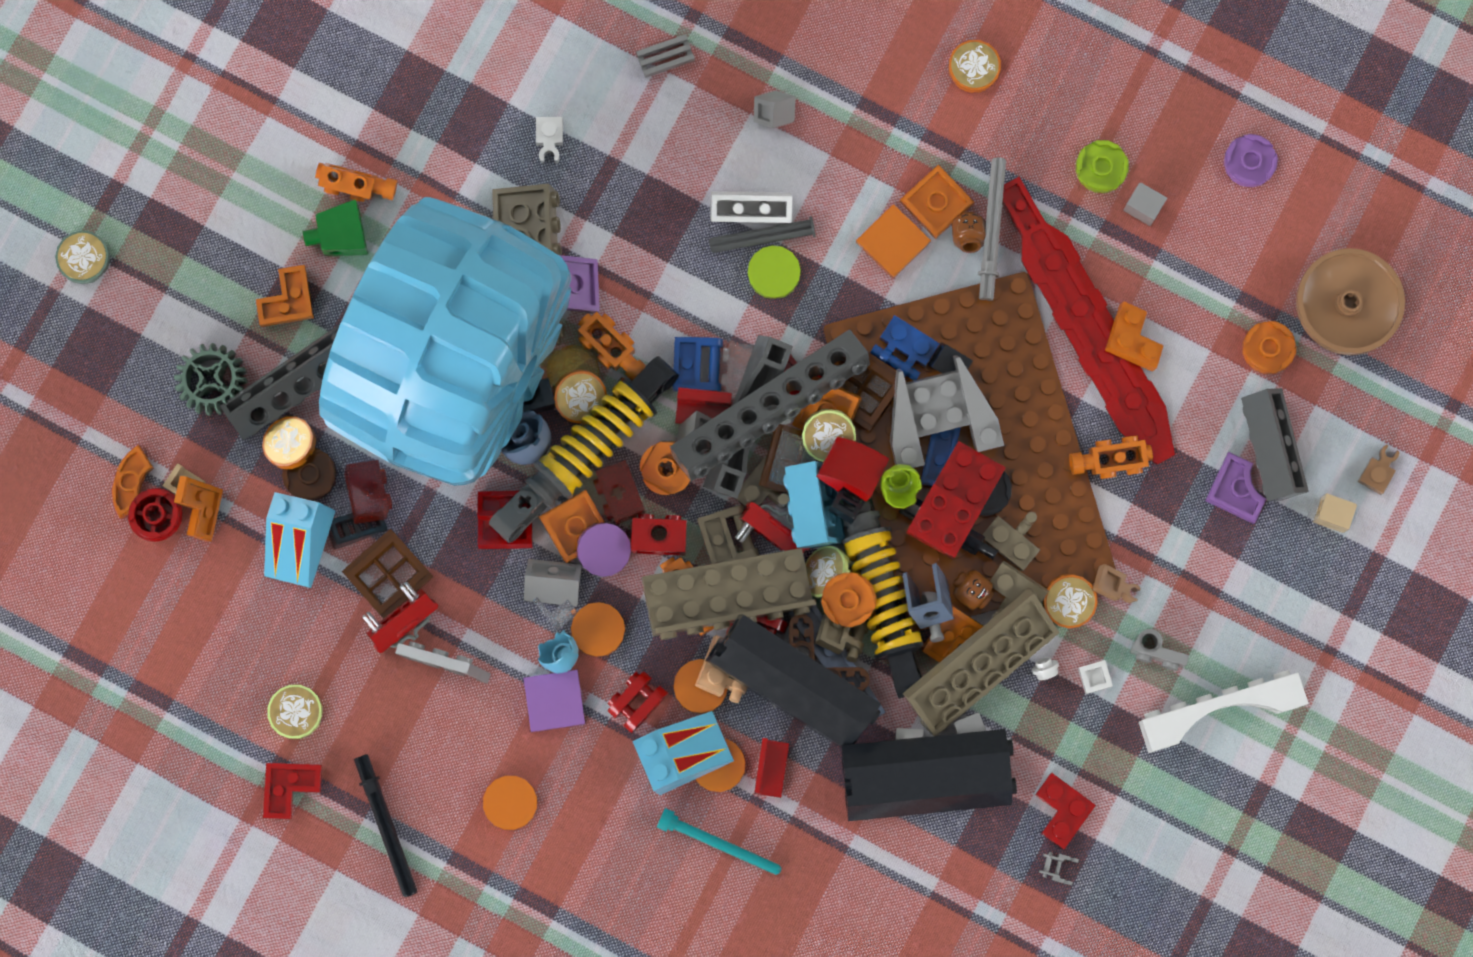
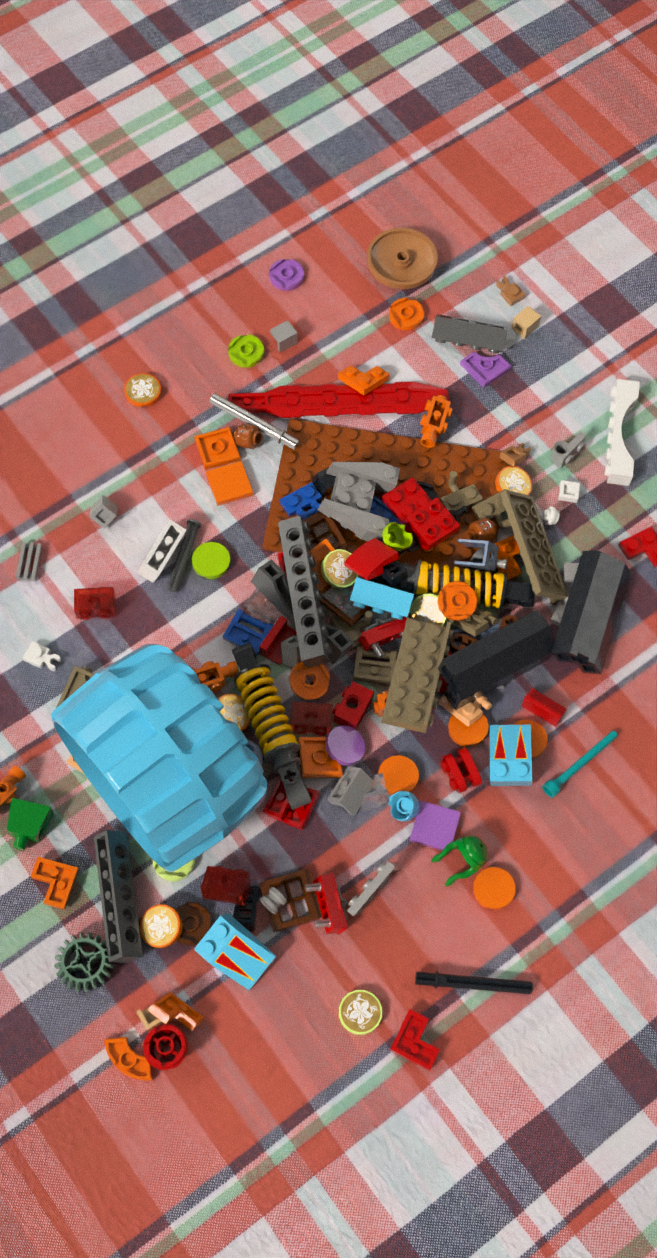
camera: 65 degrees left, 15 degrees down
(372, 553) = (273, 900): none -> light grey wheel
(534, 757) = (472, 850): none -> green hair
(644, 149) = (103, 598): none -> clear red brick

